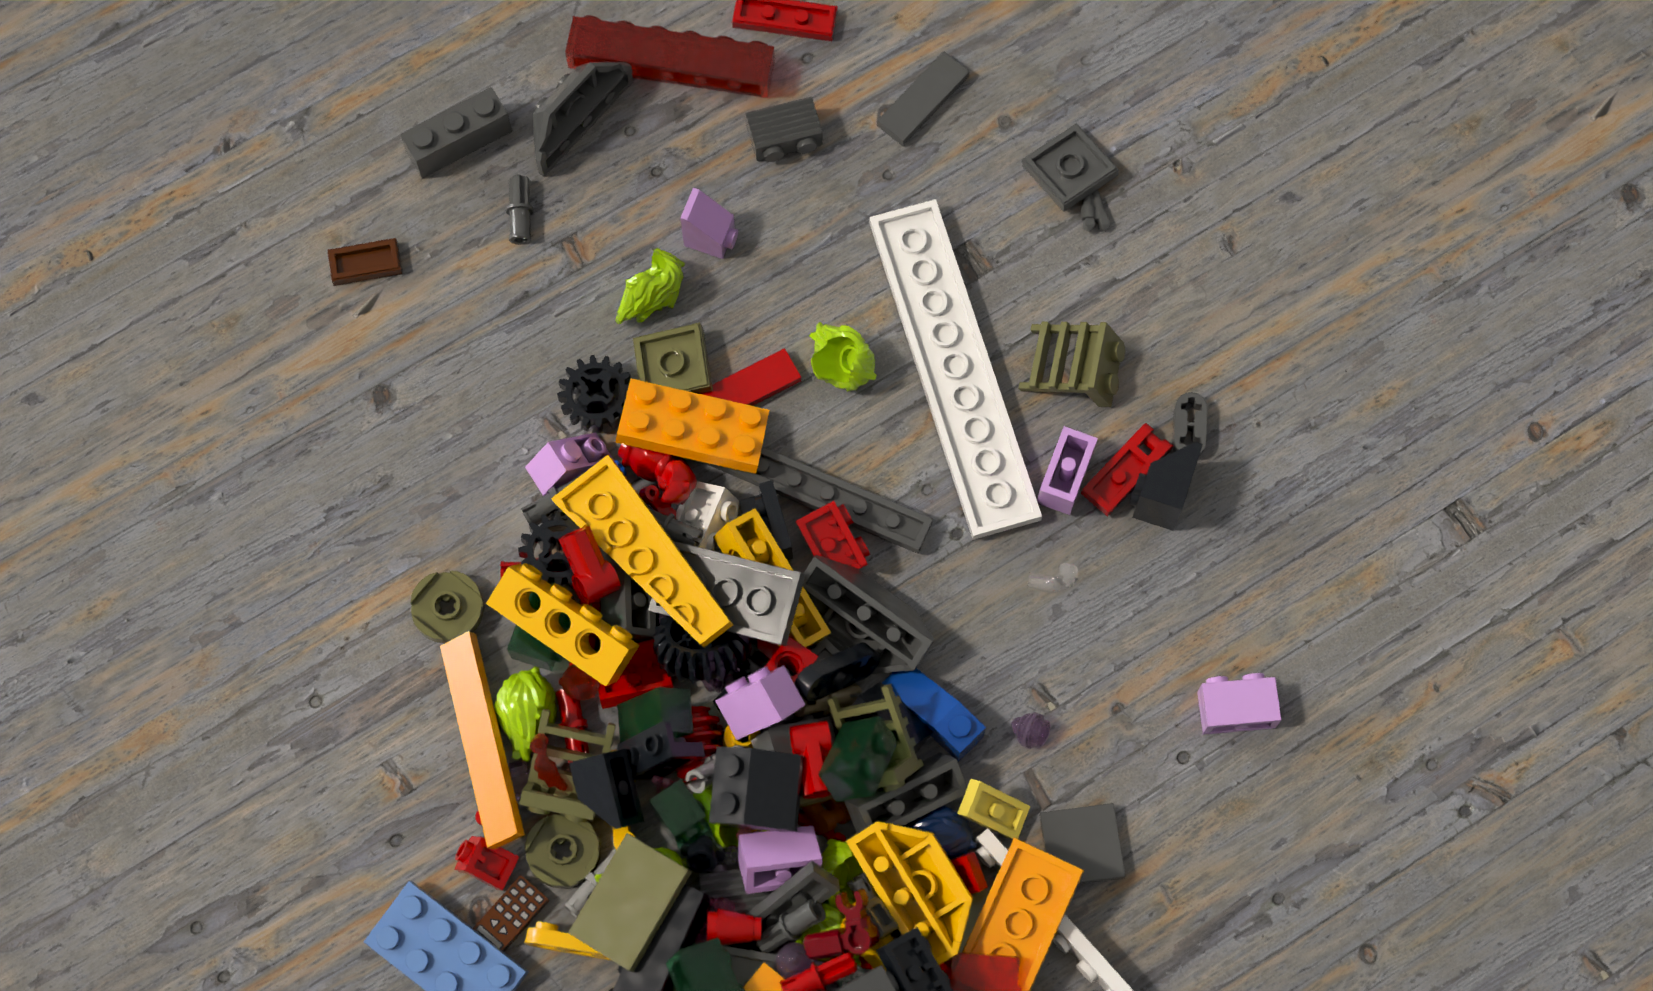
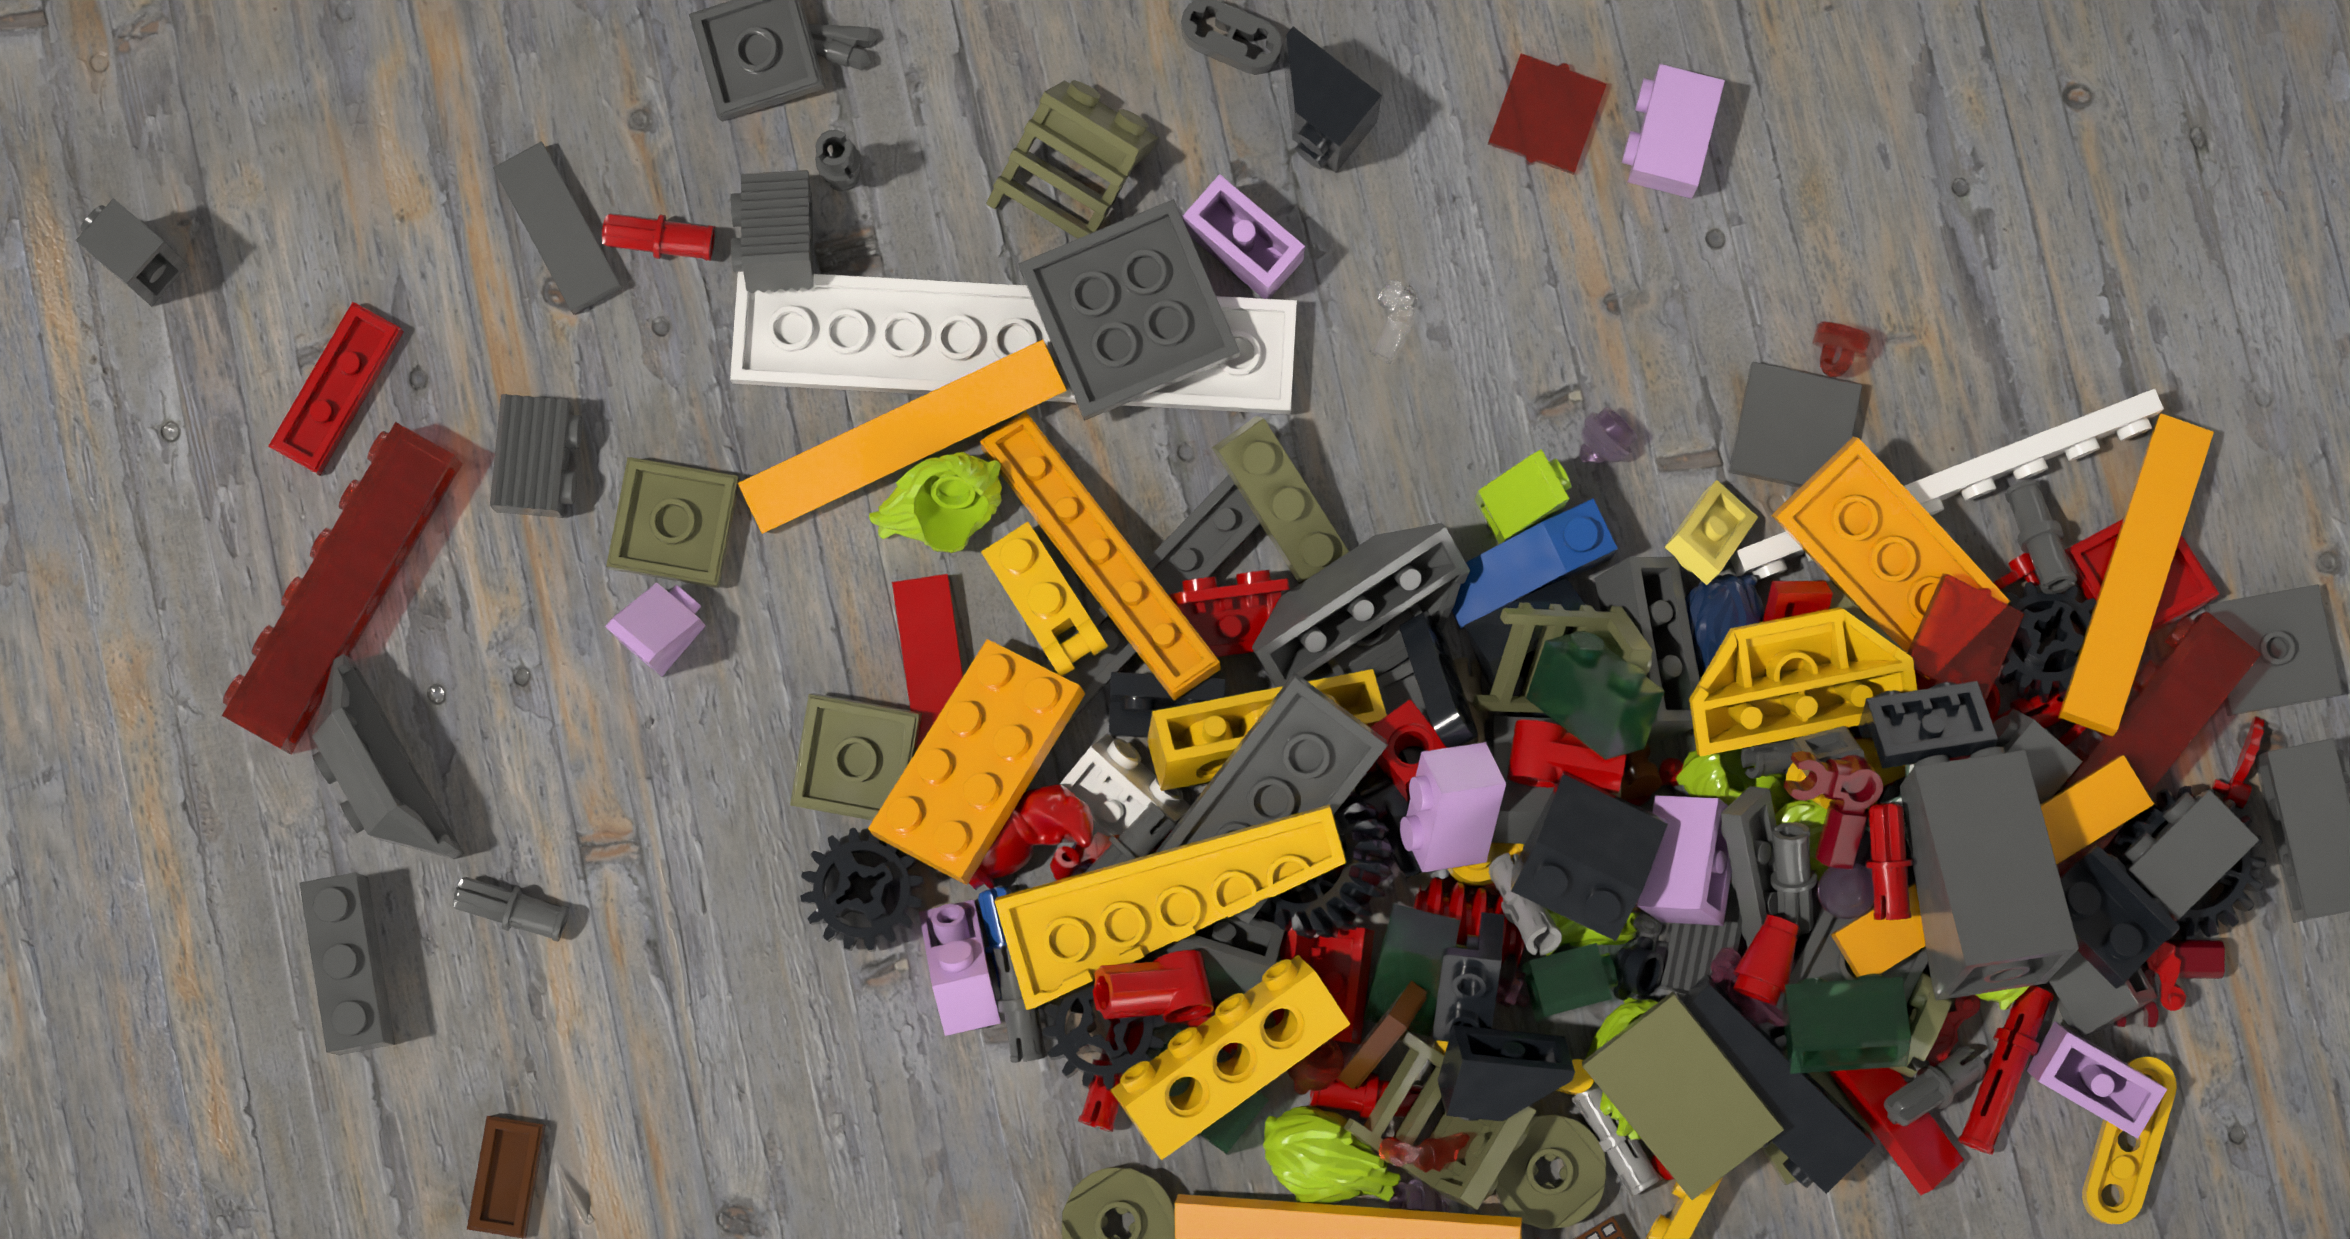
camera: 70 degrees left, 10 degrees up
(608, 712) = (1383, 1035): none -> reddish brown tile
(652, 288) = (723, 748): lime hair -> none
(774, 217) = (673, 522): none -> olive plate
(805, 434) = (1043, 597): none -> yellow plate
(841, 454) = (1100, 556): none -> light orange tile
(873, 322) = (902, 436): none -> light orange tile
(916, 545) = (1280, 499): none -> olive plate
(939, 153) = (658, 236): none -> red axle
(965, 208) = (775, 231): none -> dark grey brick
(973, 687) = (1524, 496): none -> lime slope
(996, 418) = (1129, 309): none -> dark grey plate
(1019, 226) = (832, 165): none -> dark grey pin
(1121, 472) = (1266, 152): red plate -> none
(1144, 853) = (1839, 339): none -> clear red tile
(1219, 628) = (1547, 114): none -> clear red piece

